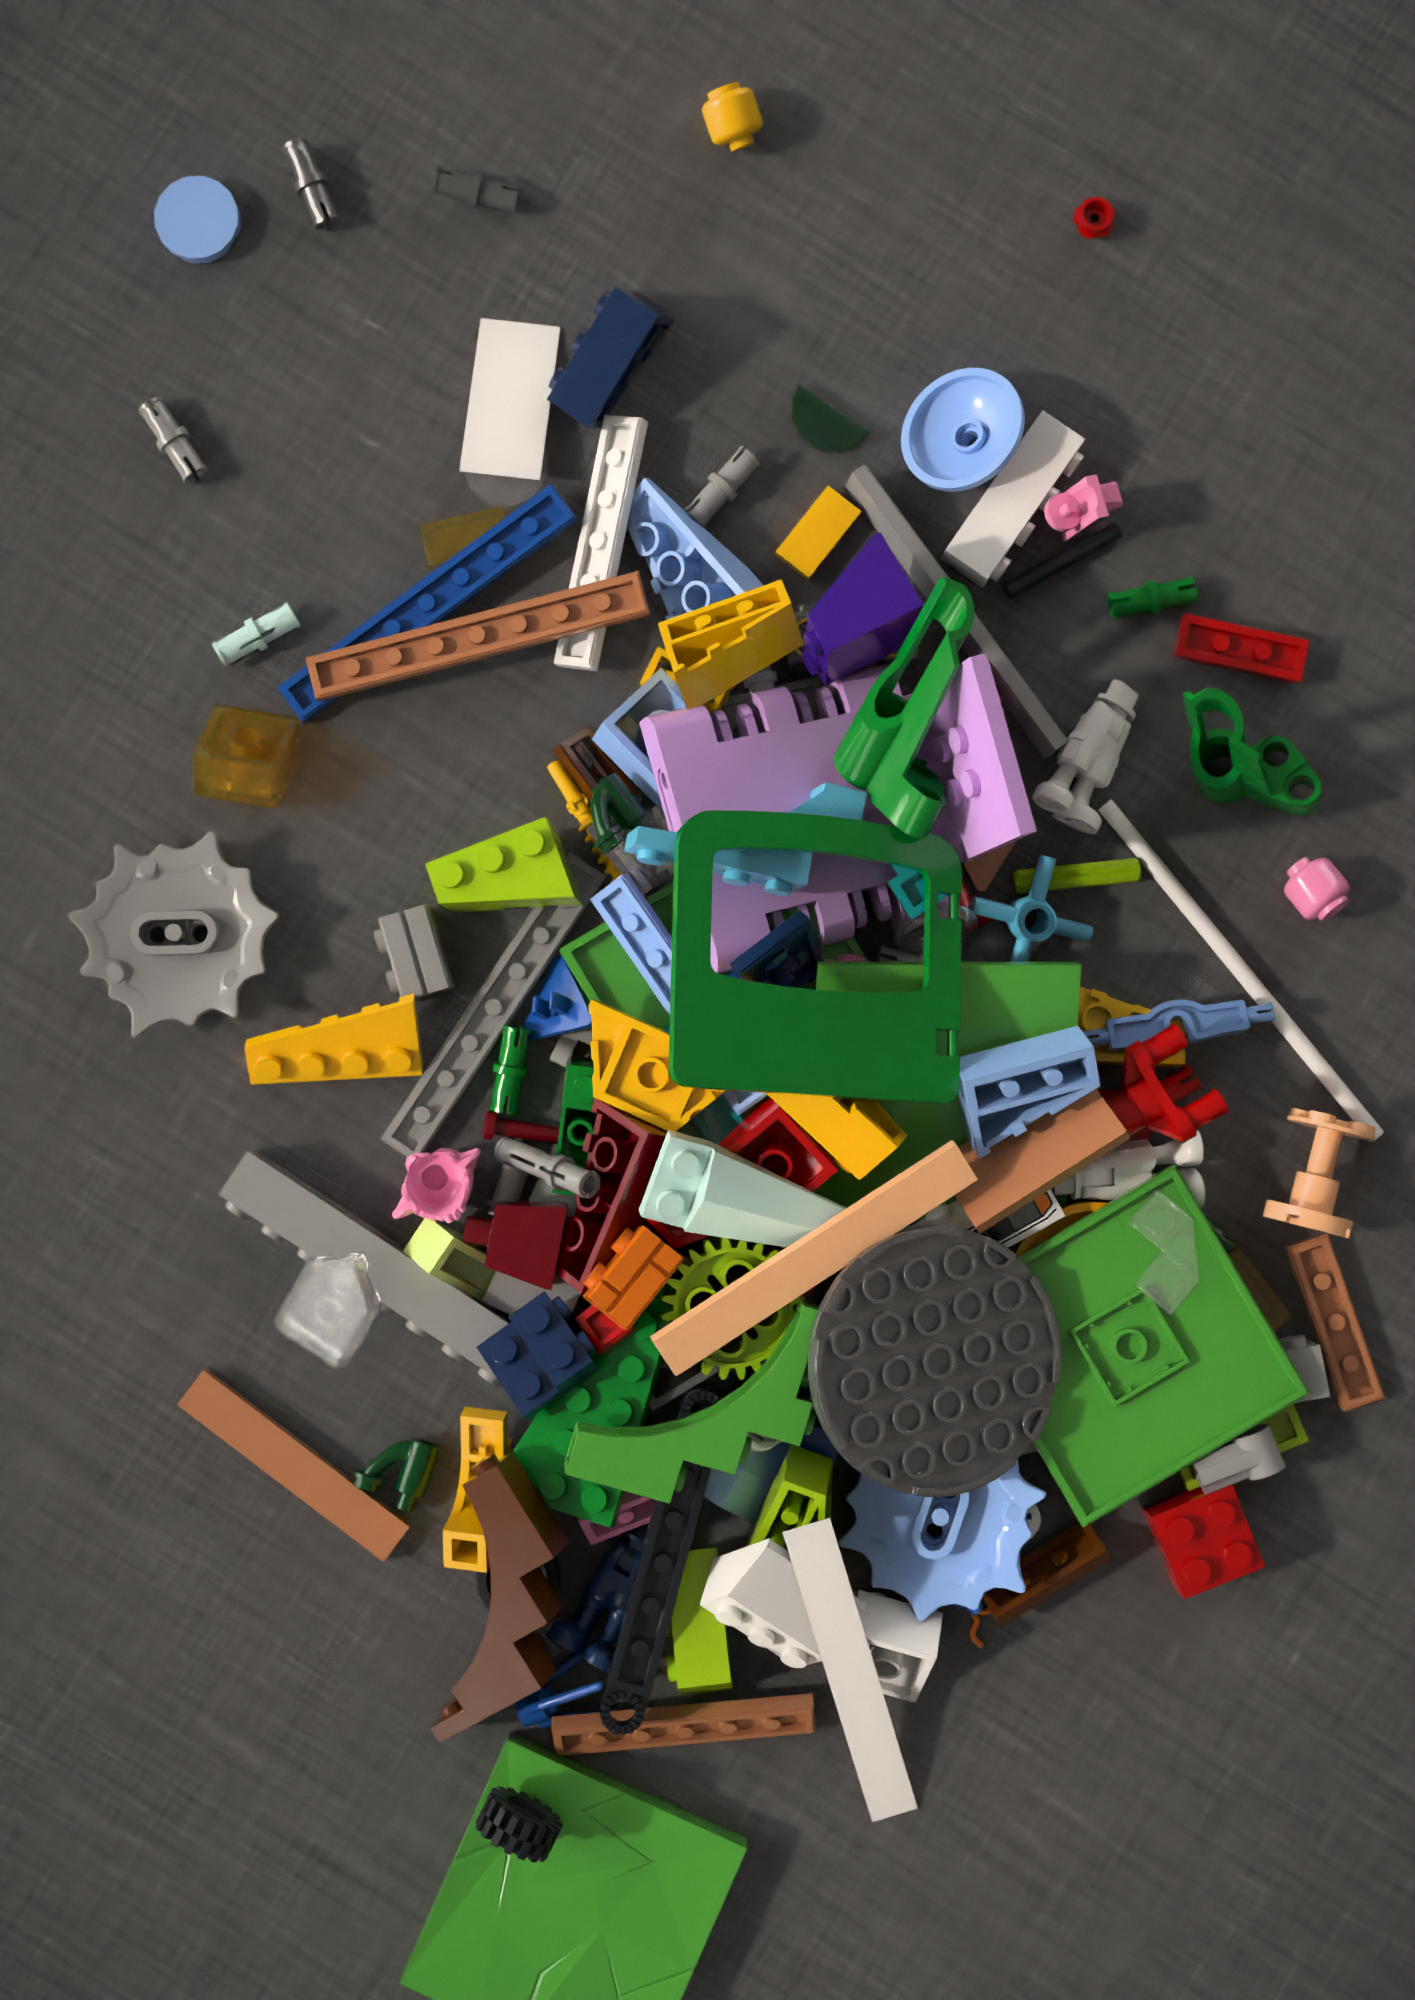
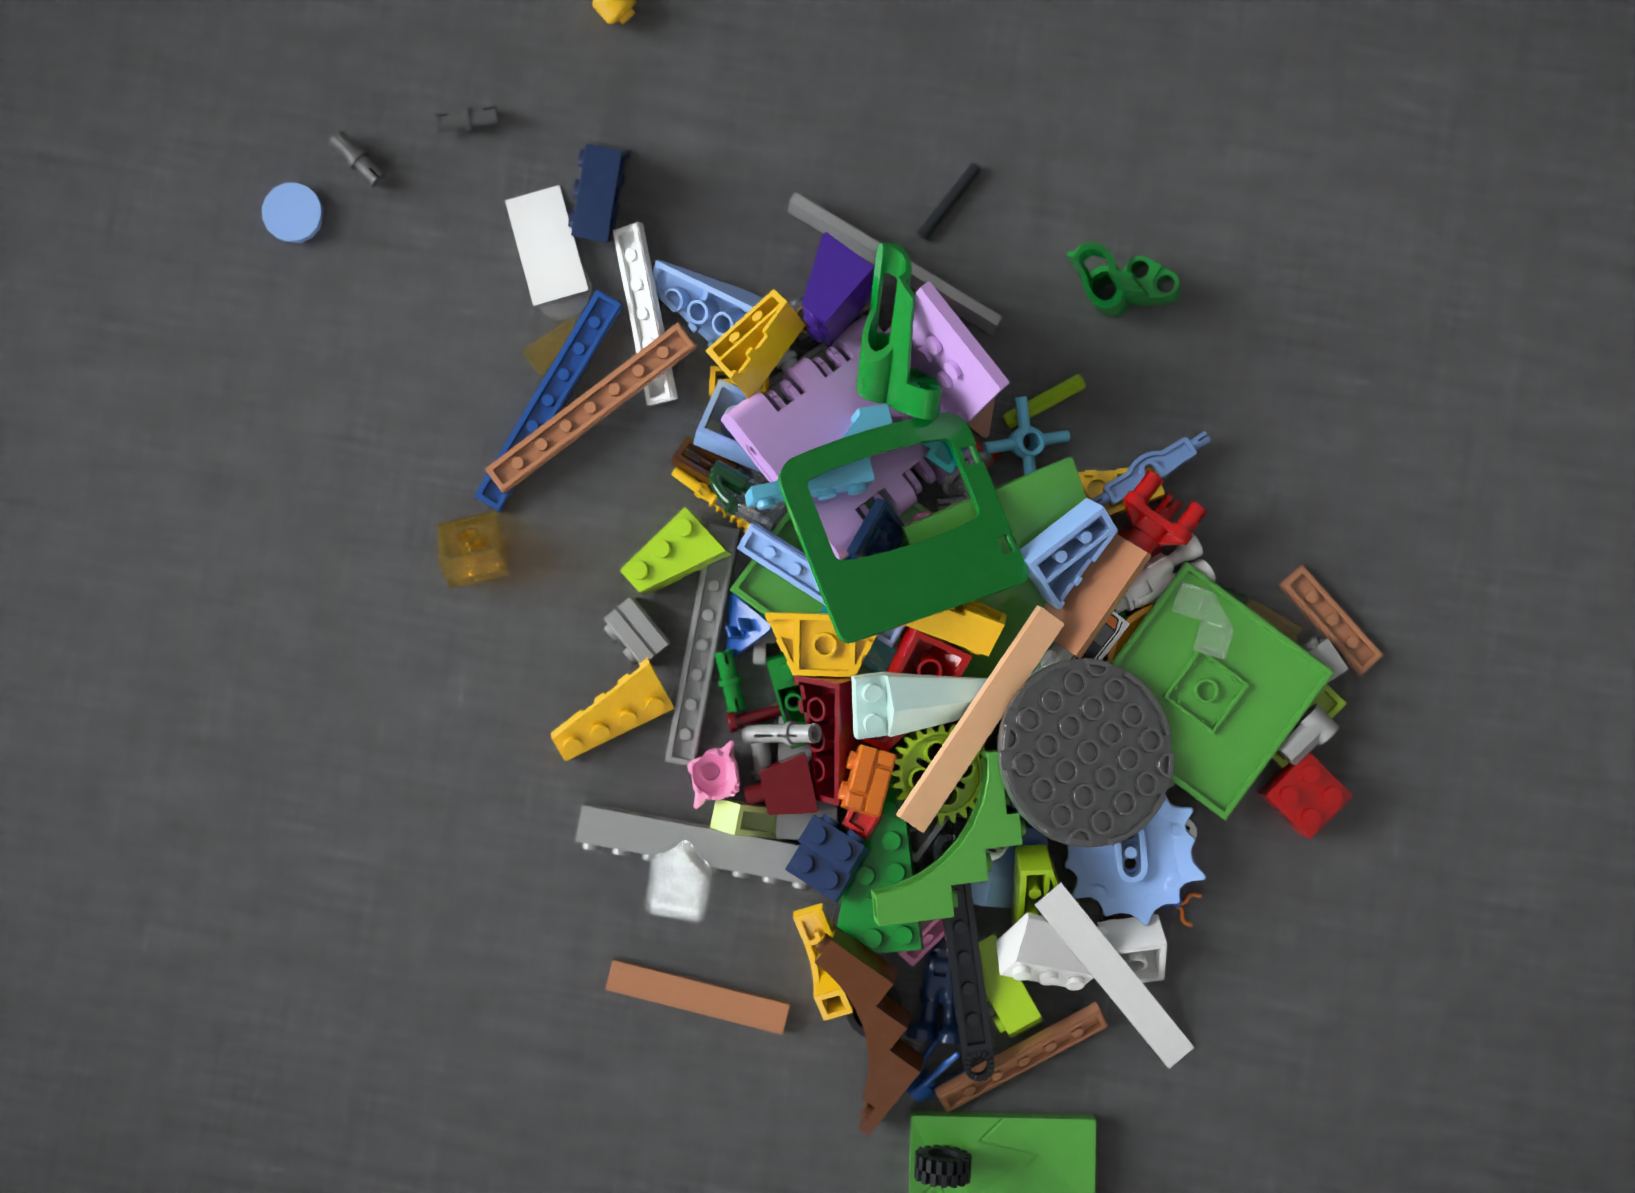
camera: 25 degrees left, 0 degrees up
(172, 439) = (337, 363): light grey pin -> none
(180, 894) = (466, 657): light grey piece -> none
(256, 634) = (445, 467): light aqua pin -> none
(419, 1460) = (779, 970): dark green plant -> none
(722, 486) = (708, 244): light grey pin -> none
(818, 532) = (783, 249): yellow tile -> none
(823, 425) = (757, 178): clear green tile -> none
(951, 415) = (837, 137): light blue dish -> none
(1013, 499) = (900, 175): white brick -> none
(1048, 1571) = (1215, 857): reddish brown plate -> none
(1082, 506) = (948, 161): bright pink hips -> none
(1090, 757) = (1020, 322): white piece -> none
(1152, 597) = (1017, 201): green pin -> none
(1236, 965) = (1174, 418): white piece -> none
(1240, 648) = (1088, 210): red plate -> none
(1315, 1191) = (1283, 540): light nougat piece -> none
(1316, 888) = (1202, 345): bright pink head -> none

